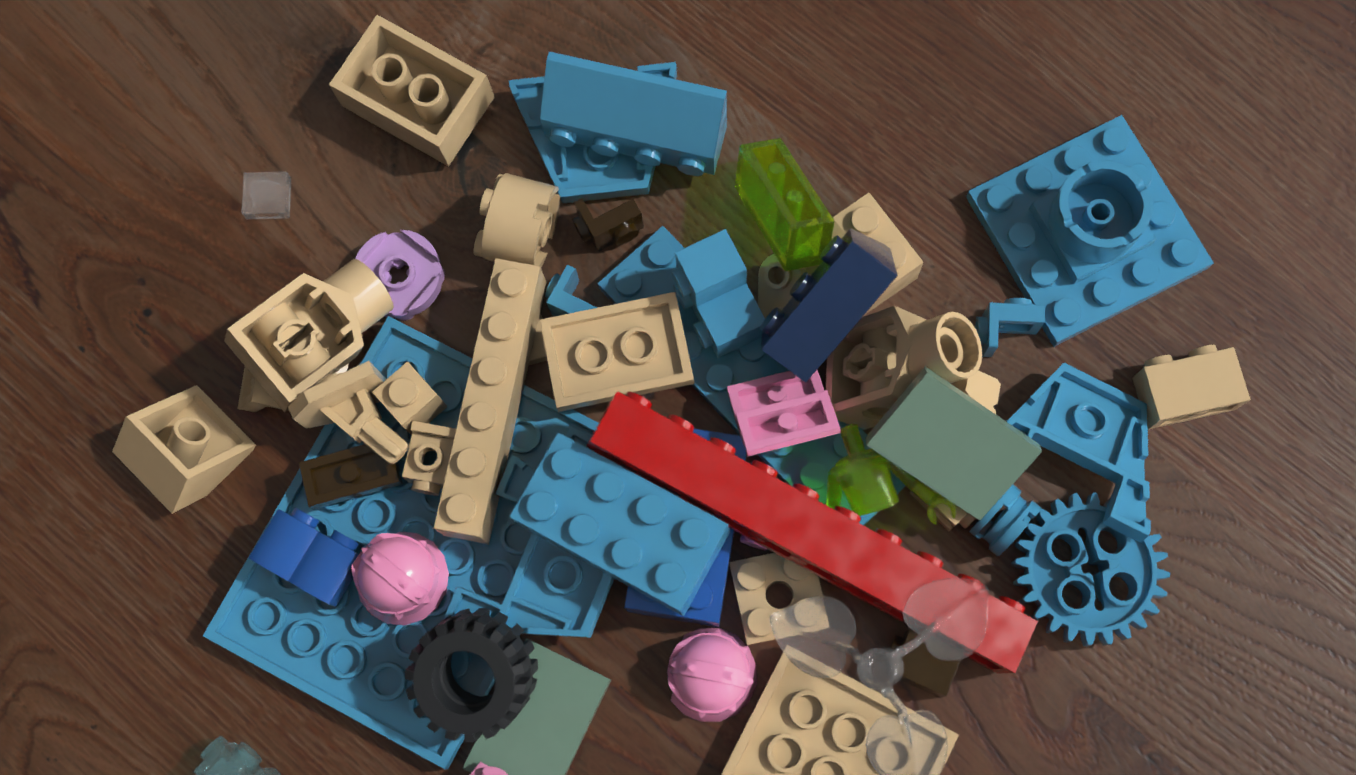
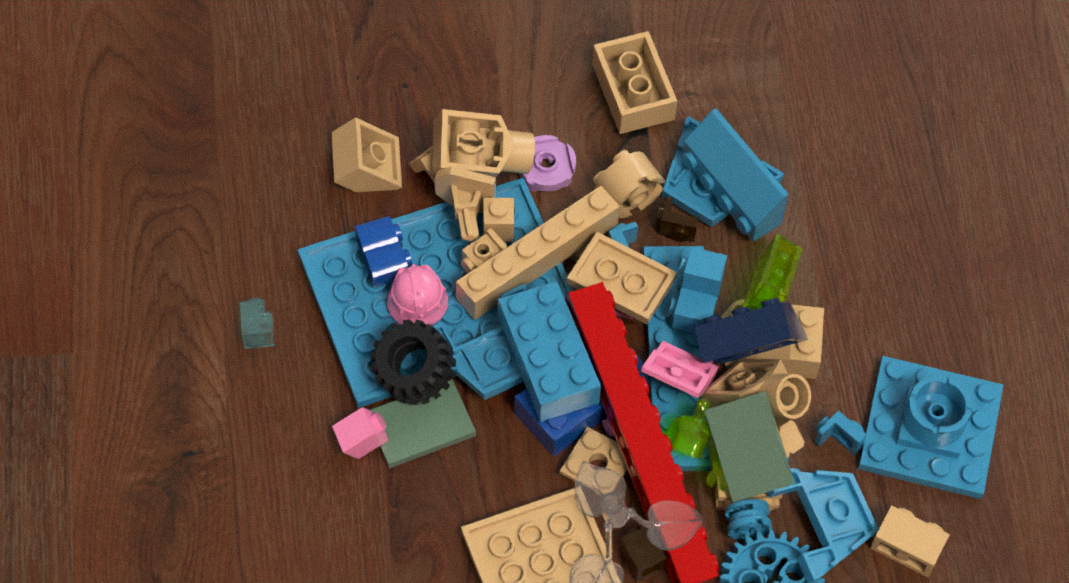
camera: 30 degrees right, 15 degrees down
(266, 195) = (514, 76): clear plate -> none
(347, 476) = (435, 231): dark brown plate -> none
(711, 675) = (528, 471): bright pink helmet -> none

